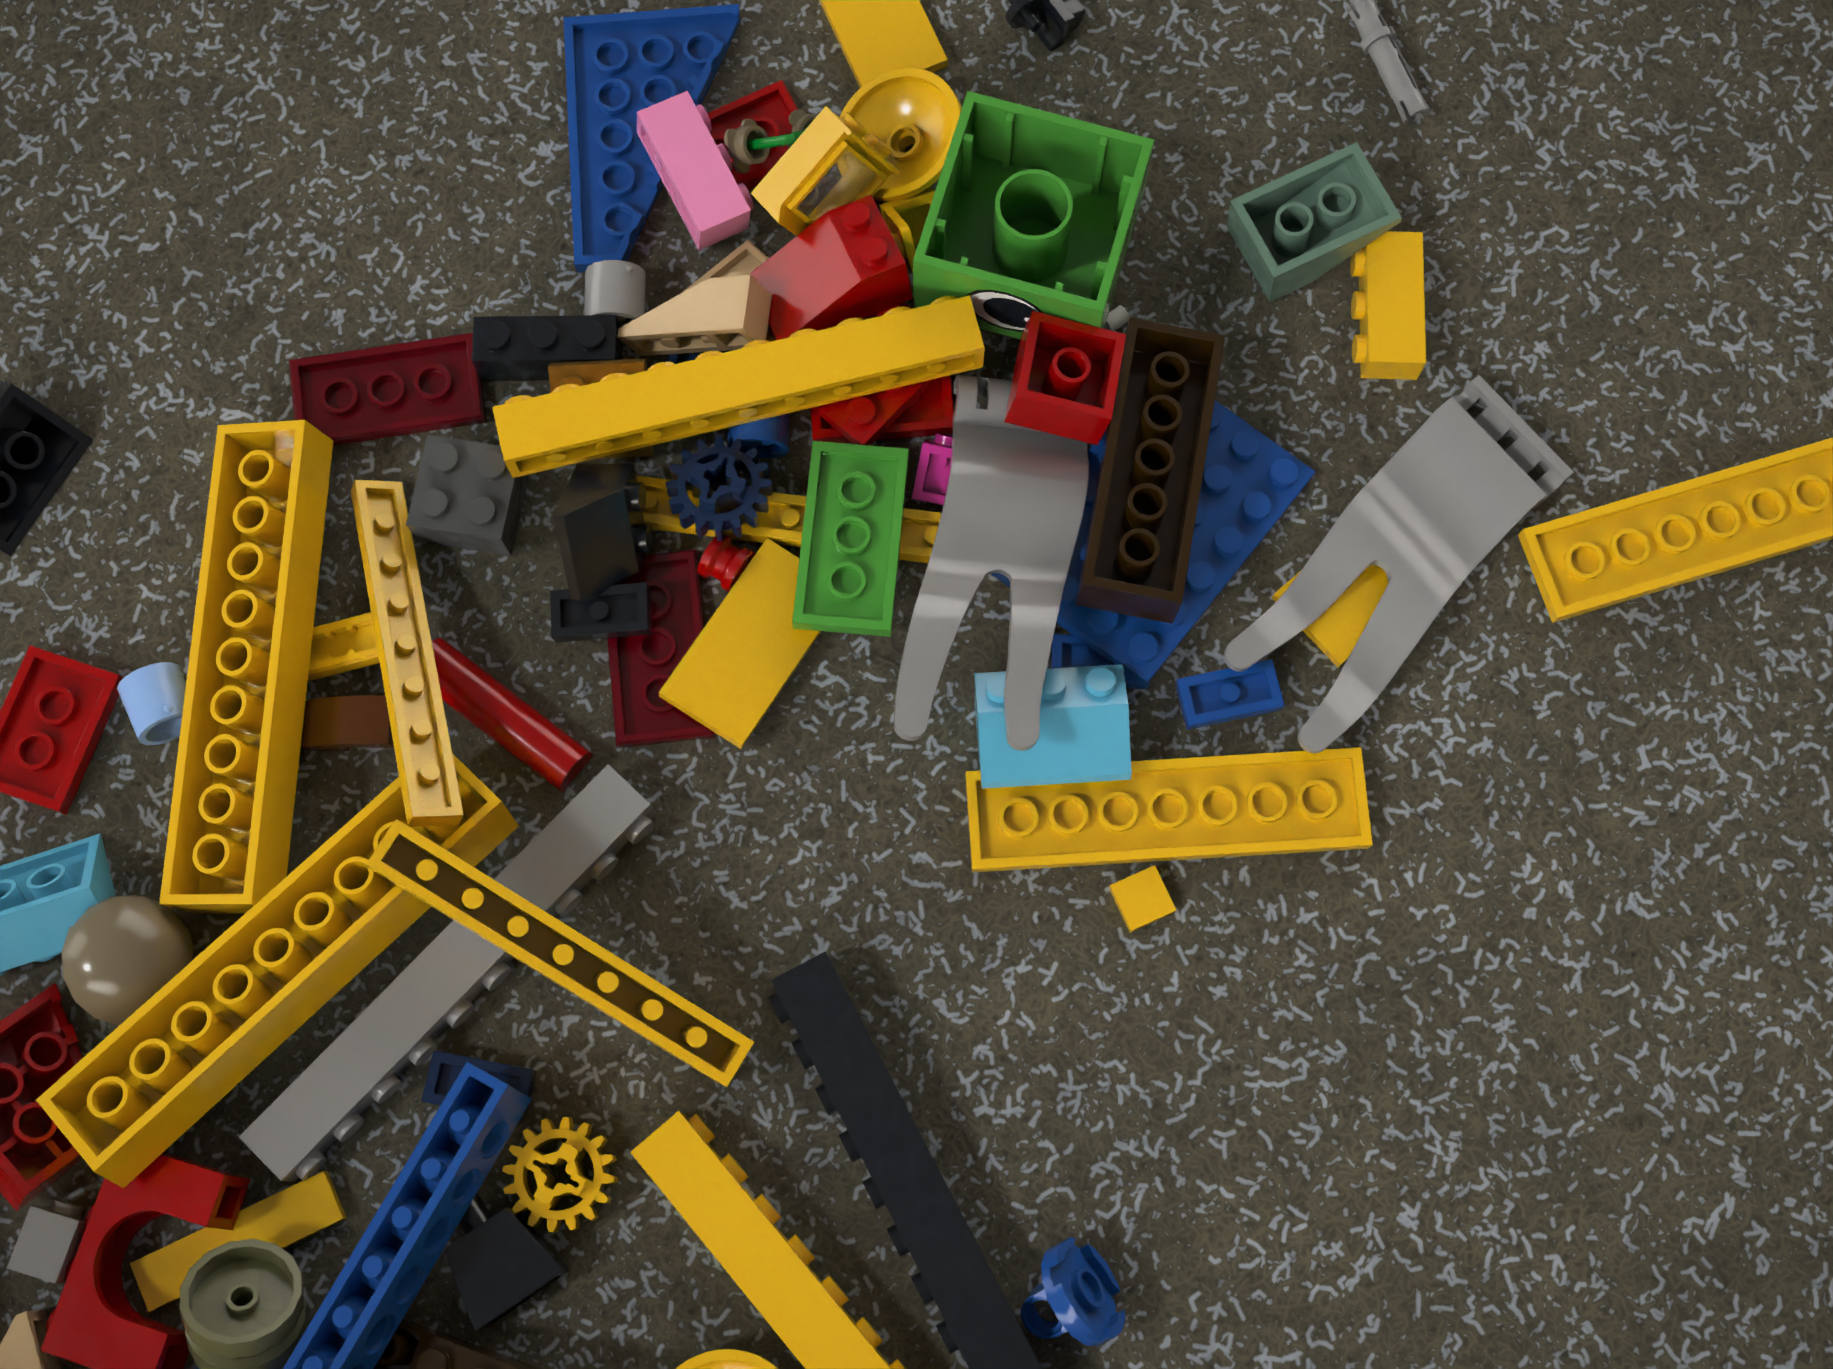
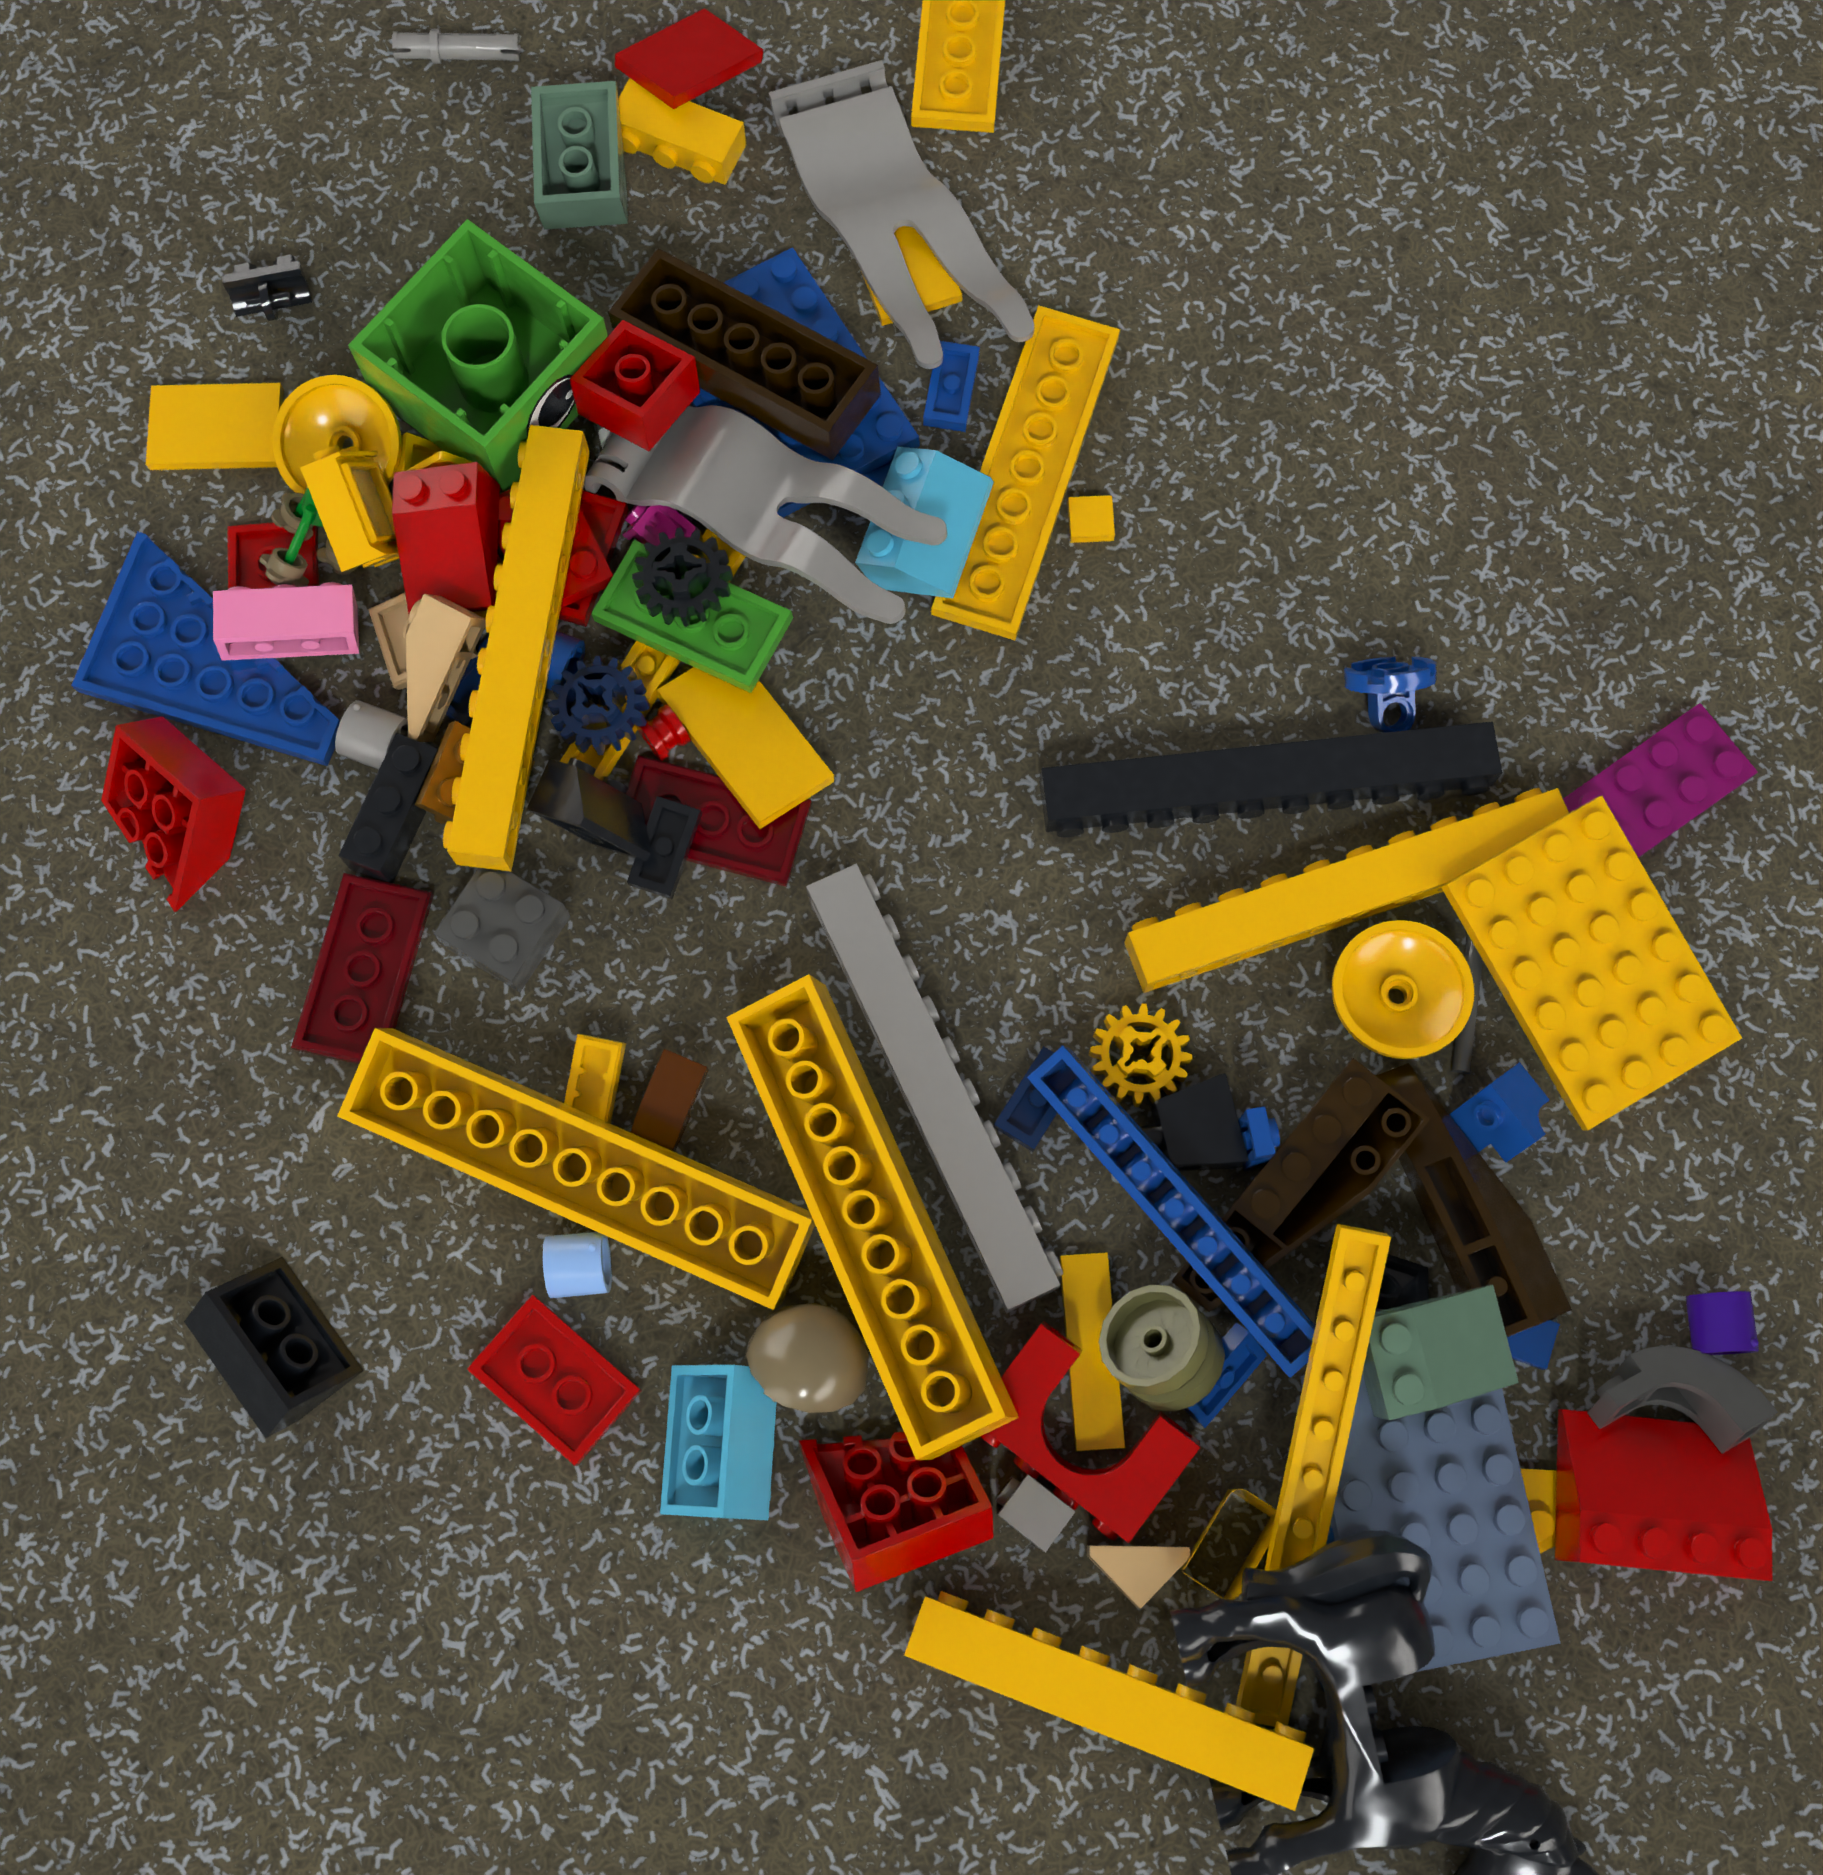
camera: 70 degrees left, 0 degrees up
(406, 656) = (631, 1017): yellow plate -> none
(484, 154) = (173, 802): none -> red wedge
(500, 1331) = (1259, 1137): none -> blue plate
(507, 718) = (715, 972): red brick -> none
(559, 953) = (959, 972): yellow brick -> none
(889, 492) = (701, 580): none -> black gear
(1477, 280) = (688, 58): none -> red tile

